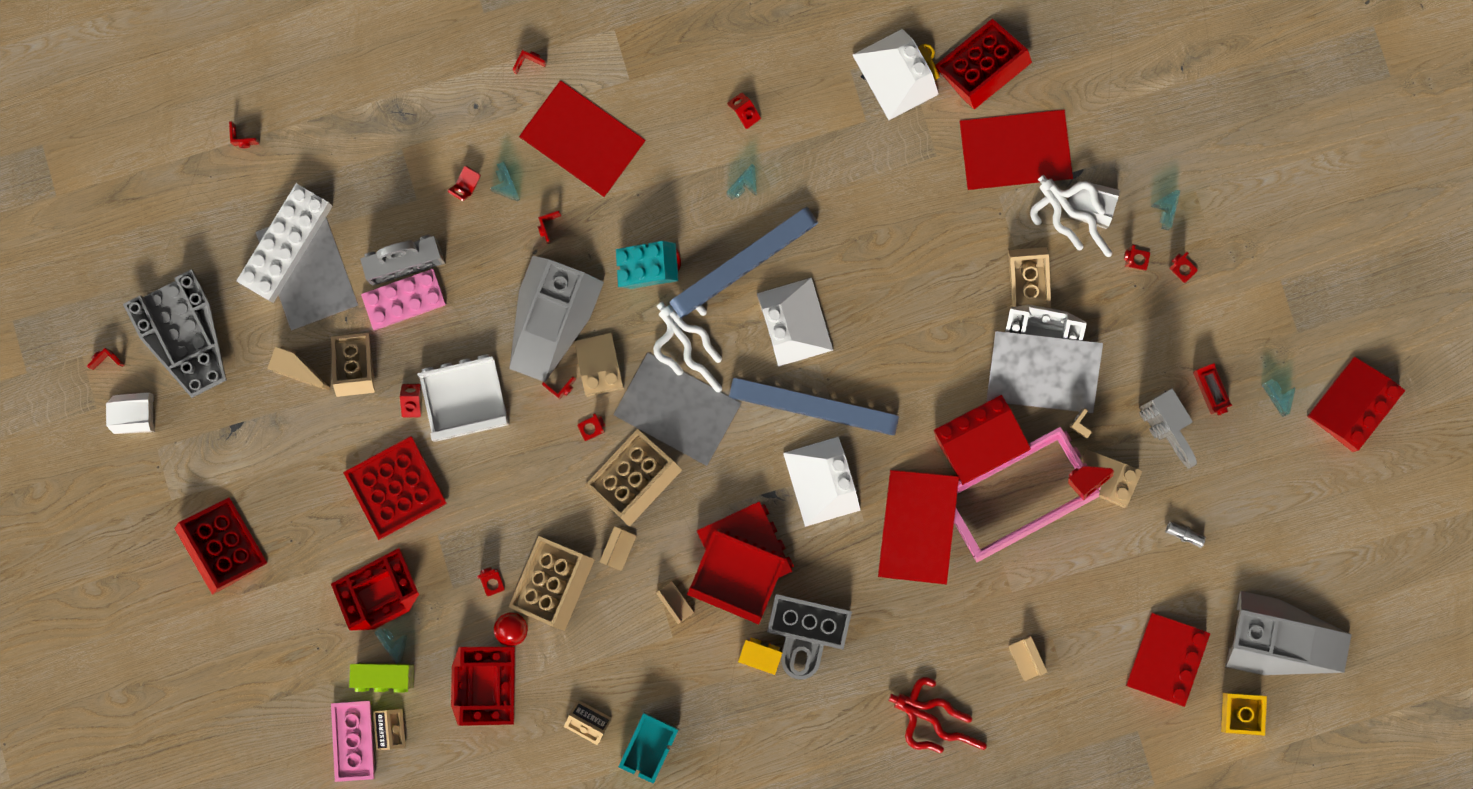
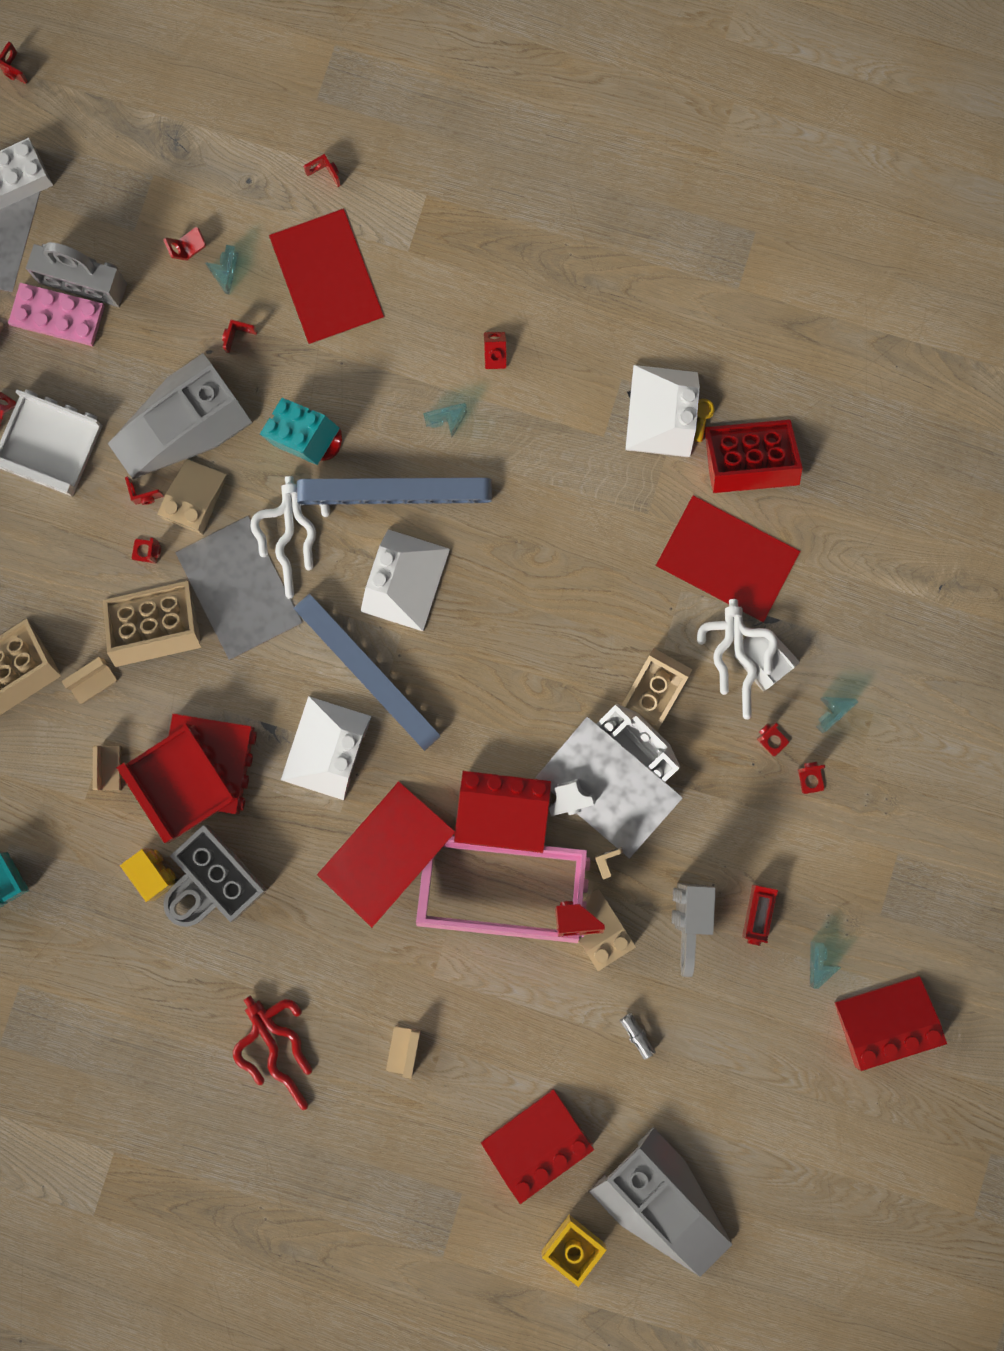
camera: 30 degrees right, 0 degrees up
(1023, 398) = (571, 798): none -> white brick

